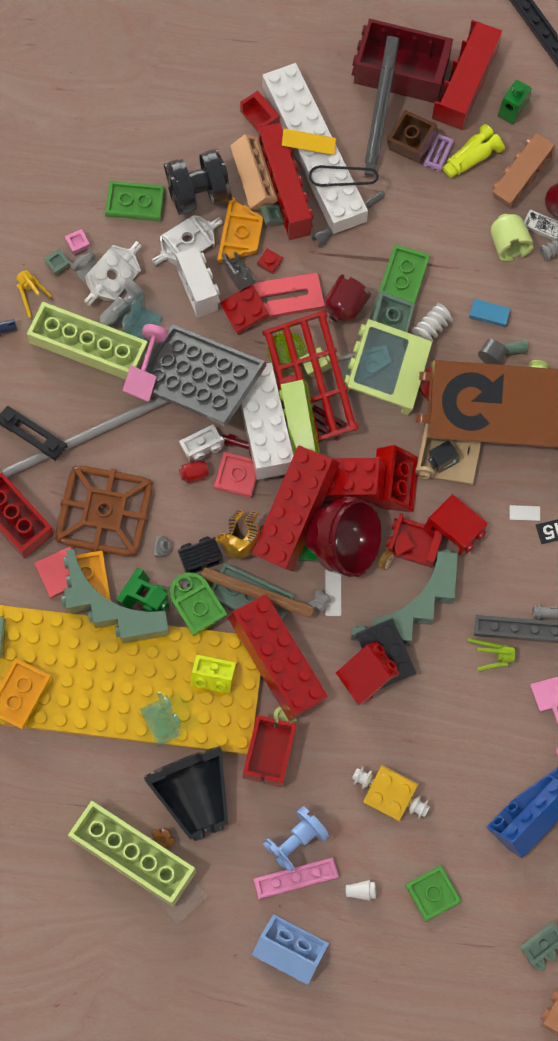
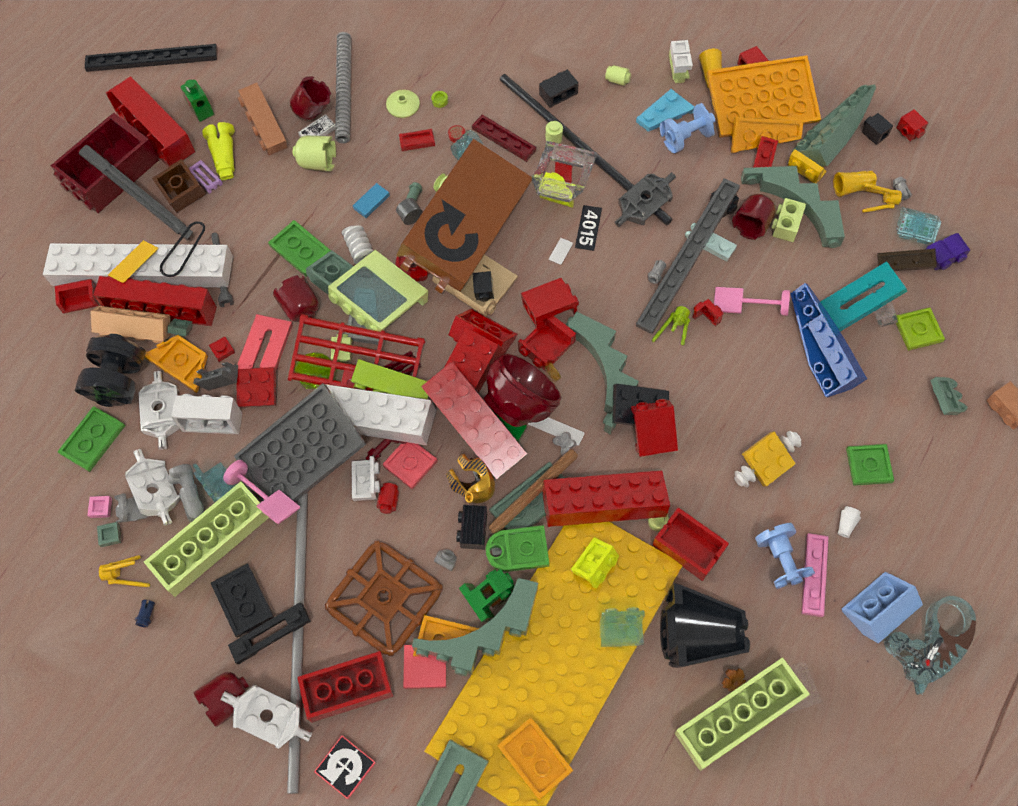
camera: 60 degrees left, 5 degrees down
(49, 397) = (242, 600): none -> black plate
(257, 1008) = (939, 652): none -> clear light blue animal
(526, 673) = (709, 310): none -> red bracket

